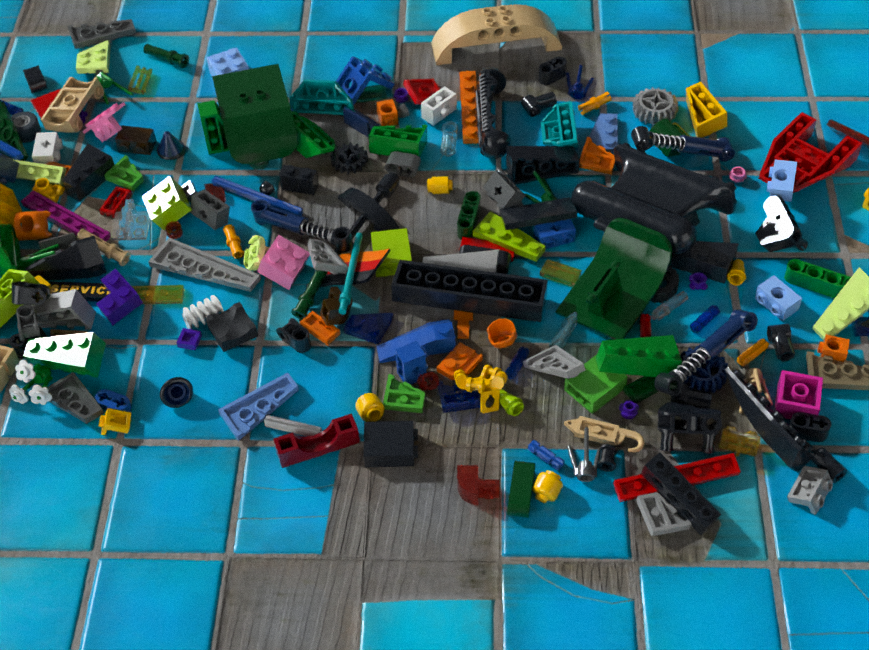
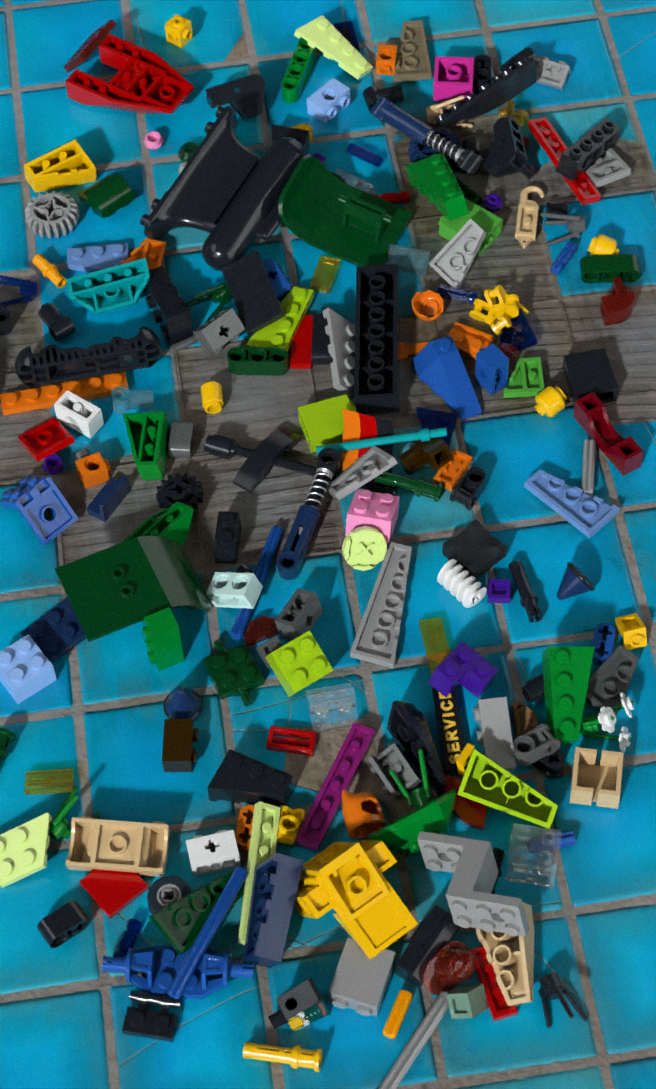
camera: 100 degrees left, 5 degrees up
(26, 293) = (501, 745): black piece -> none
(105, 124) = (164, 776): bright pink bracket -> none
(110, 250) = (381, 719): tan pin -> none
(124, 174) = (244, 738): bright green wing -> none
(172, 226) = (331, 650): clear red bush -> none
(181, 357) = (528, 598): none -> black pin
(187, 170) = (233, 672): none -> dark green plate
(233, 241) = (339, 585): light orange pin -> none
(246, 176) = (234, 590): none -> light aqua brick
(320, 98) = (81, 529): teal wedge -> none
(511, 403) = (514, 286): lime cone -> none
(718, 148) = (119, 154): piece -> none
(783, 171) = (185, 85): light blue brick -> none

